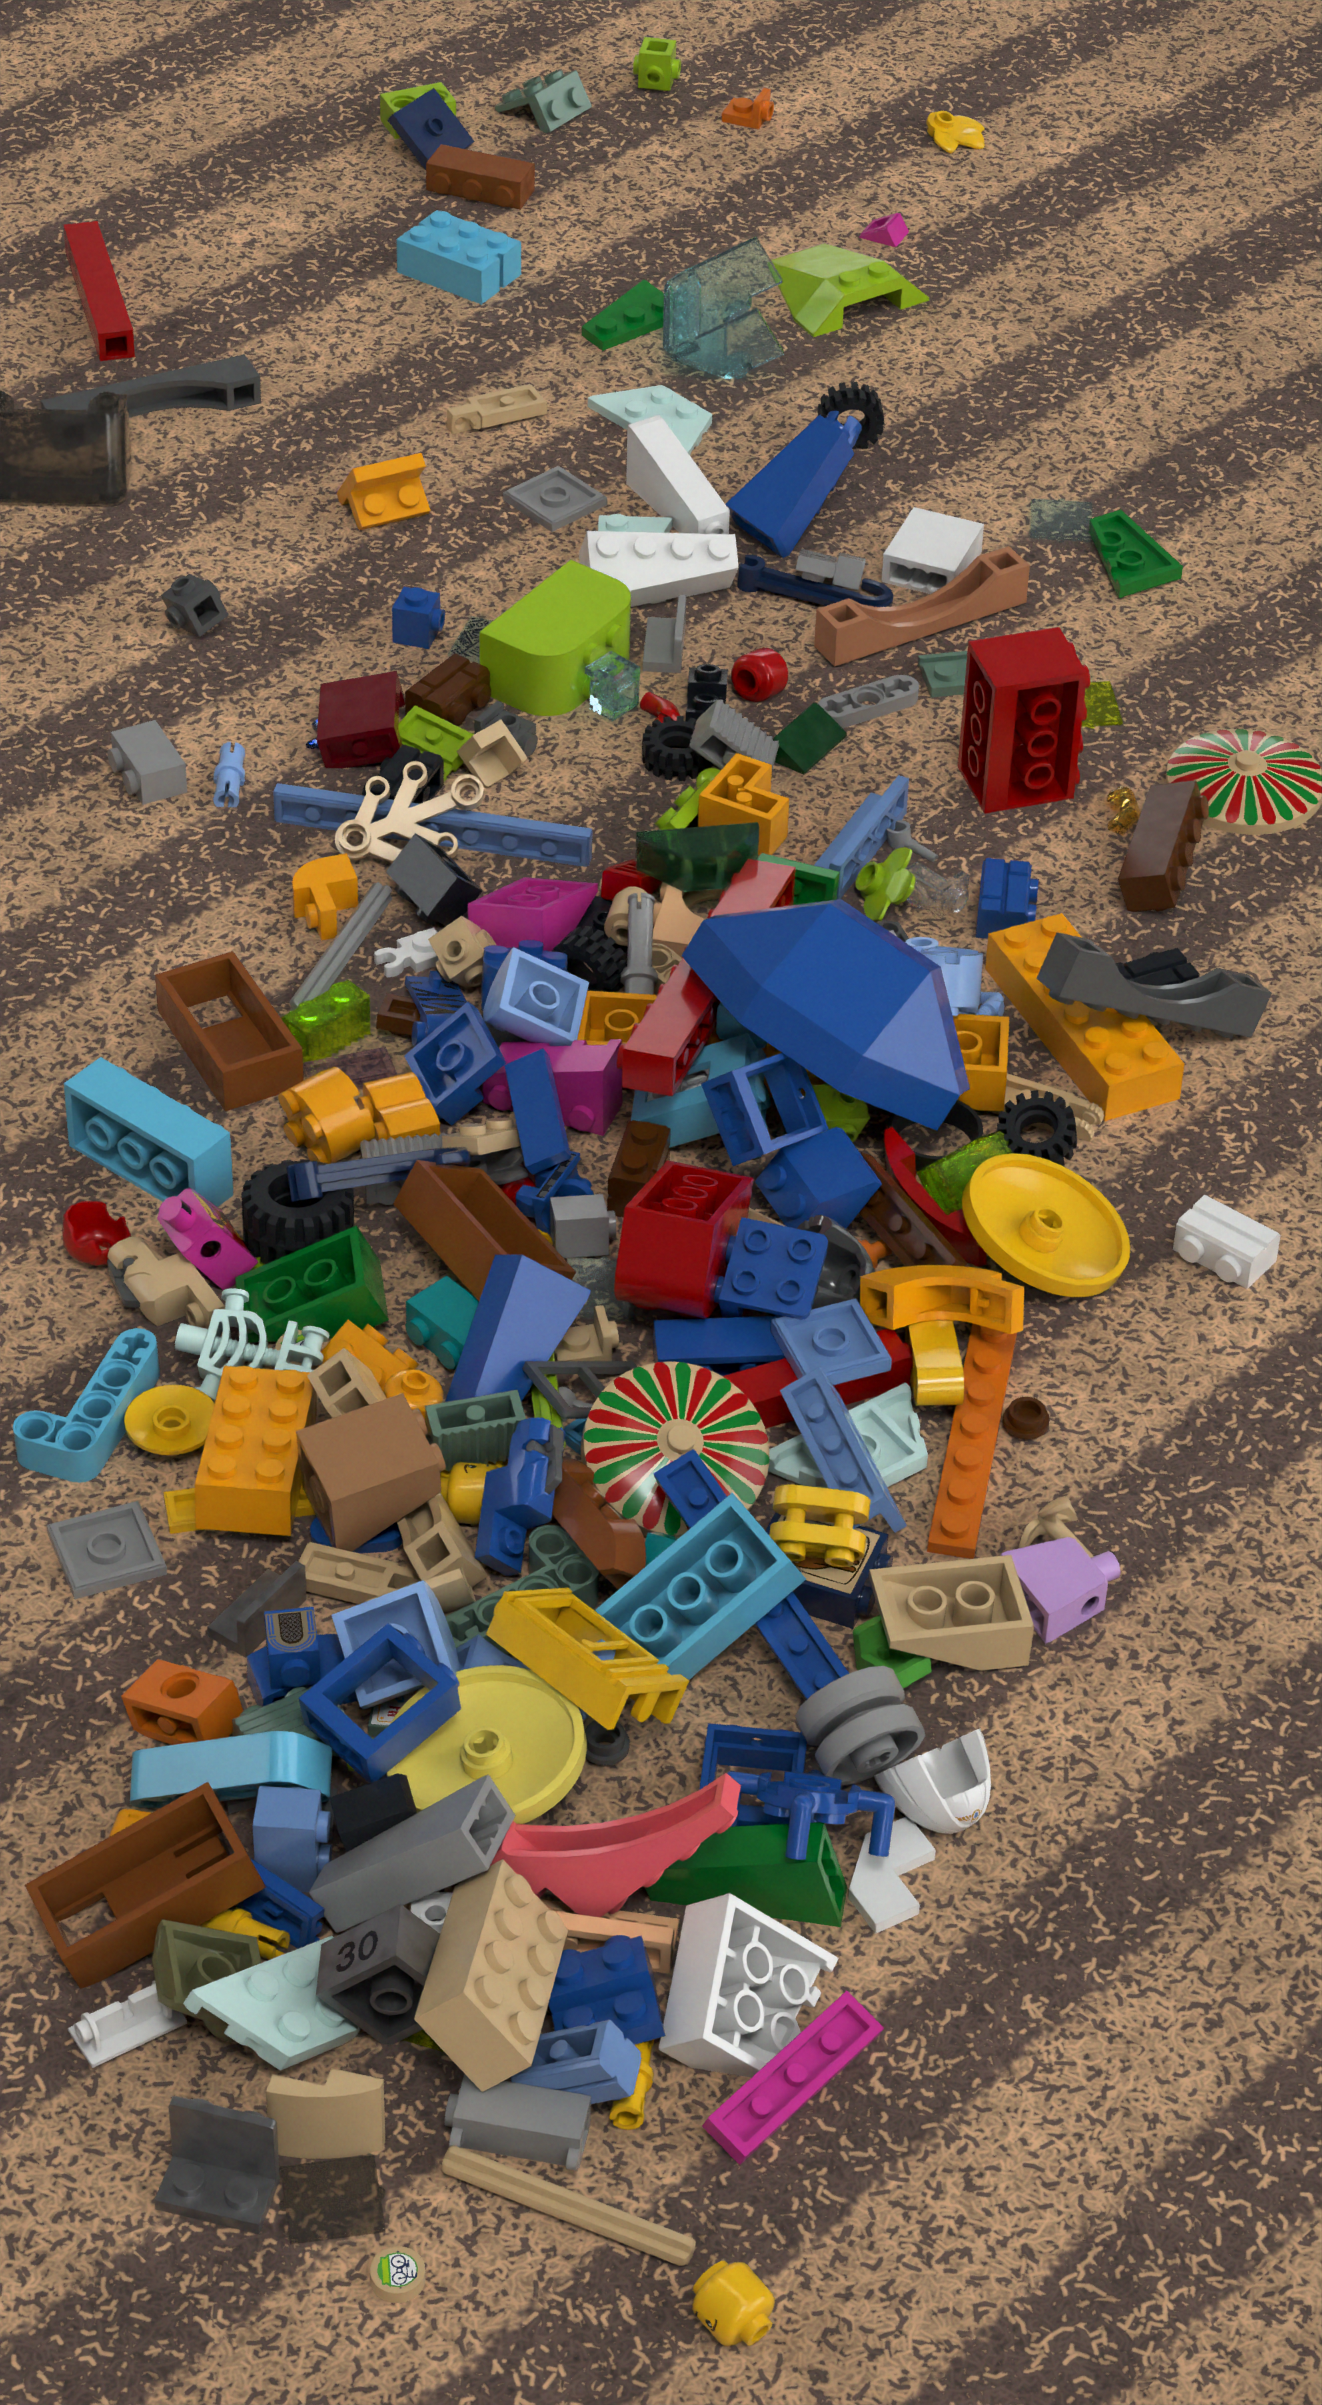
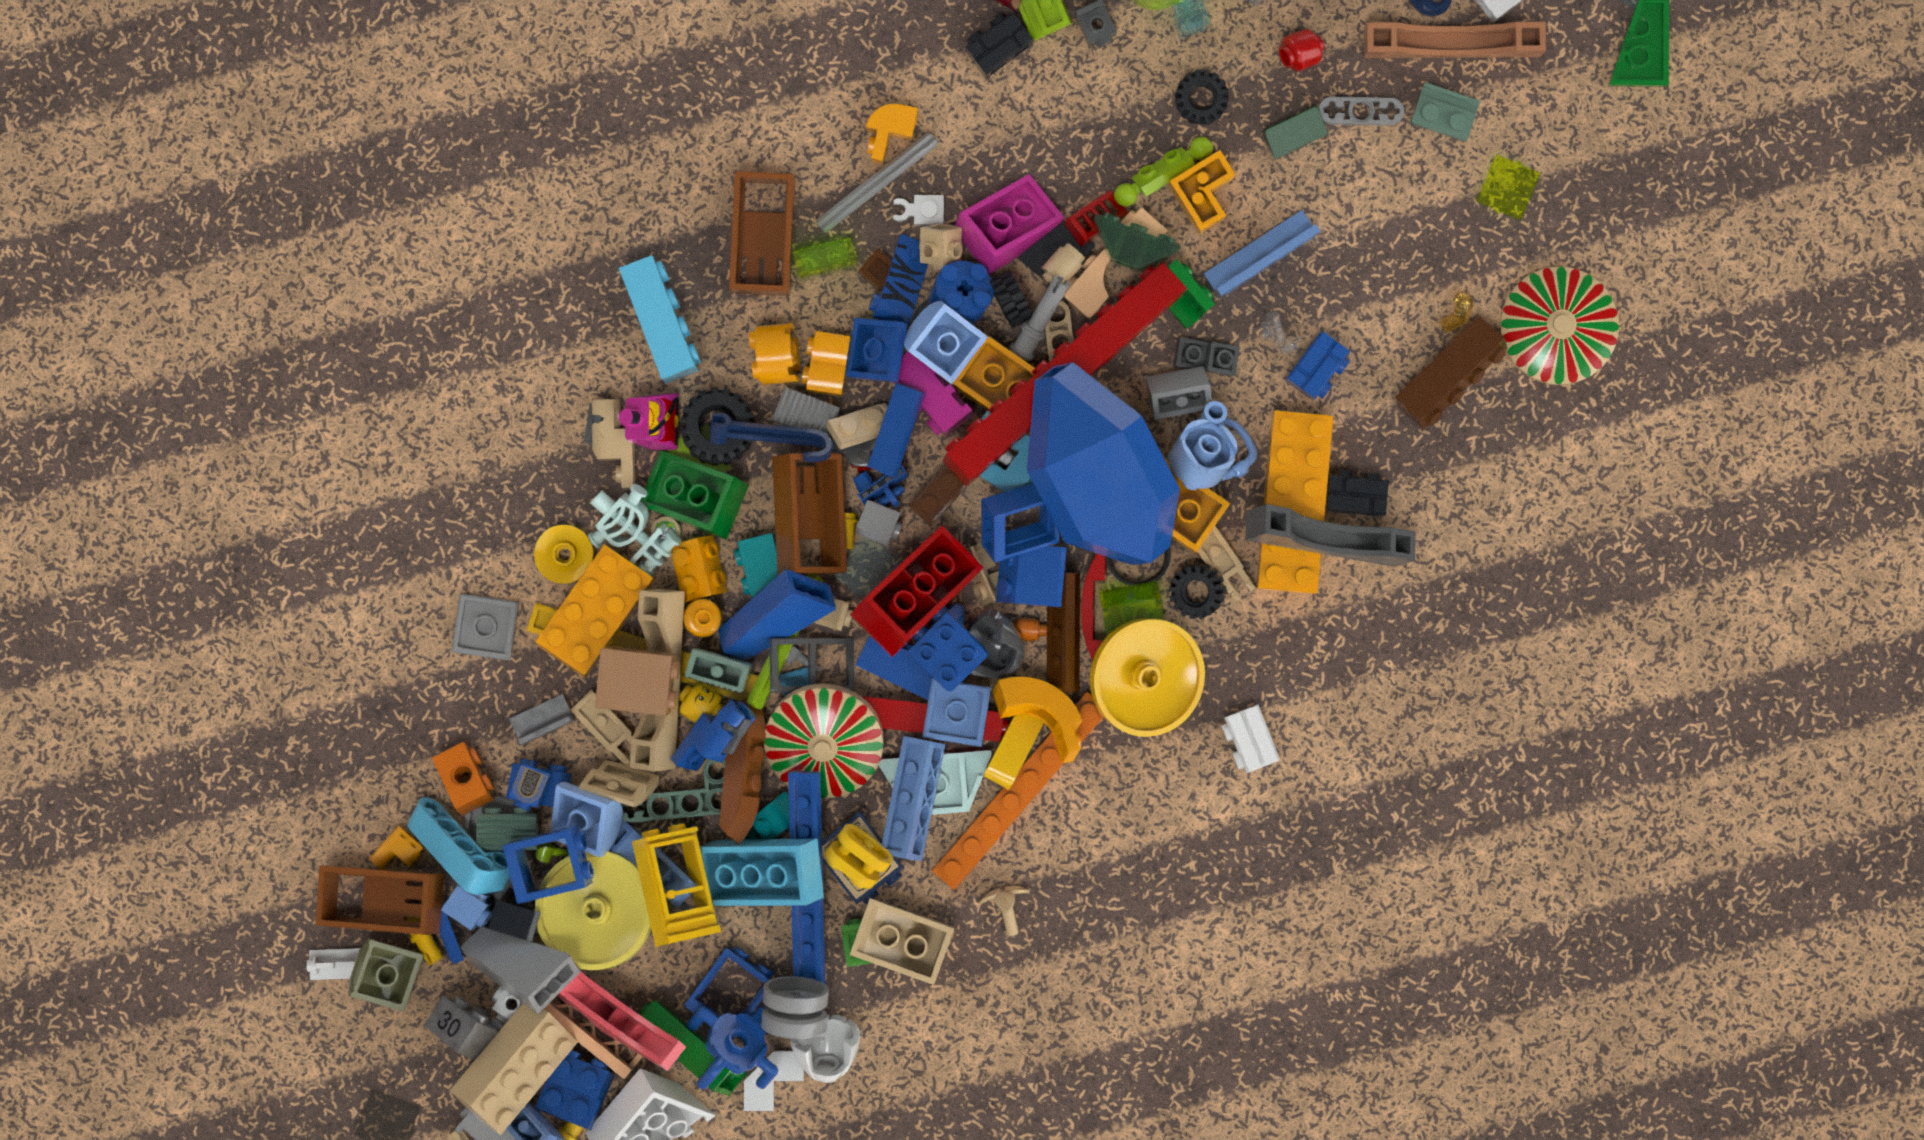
camera: 30 degrees right, 45 degrees up
(83, 1441) = (530, 517): medium azure beam -> none
(88, 1227) = (588, 385): red hair -> none
(220, 2165) = (335, 1087): flat silver bracket -> none
(277, 2008) = (406, 1007): light aqua wing -> none
(328, 2119) = (406, 1096): tan slope -> none
(358, 1066) = (822, 301): tile -> none
(402, 819) = (973, 93): tan plant -> none
(432, 882) = (959, 161): black brick -> none
(472, 829) = (995, 95): medium blue tile -> none
(492, 754) = (1070, 44): tan panel -> none
(658, 707) = (1219, 51): red arm -> none
(705, 686) = (1256, 47): black slope -> none
(723, 733) = (1231, 128): light grey brick -> none
(885, 883) = (1249, 313): lime plate -> none
(902, 838) = (1297, 267): light grey hand -> none
(1022, 719) = (1418, 234): red brick -> none
(1026, 1418) = (1046, 808): reddish brown plate -> none
(1063, 1584) = (981, 943): lavender torso -> none

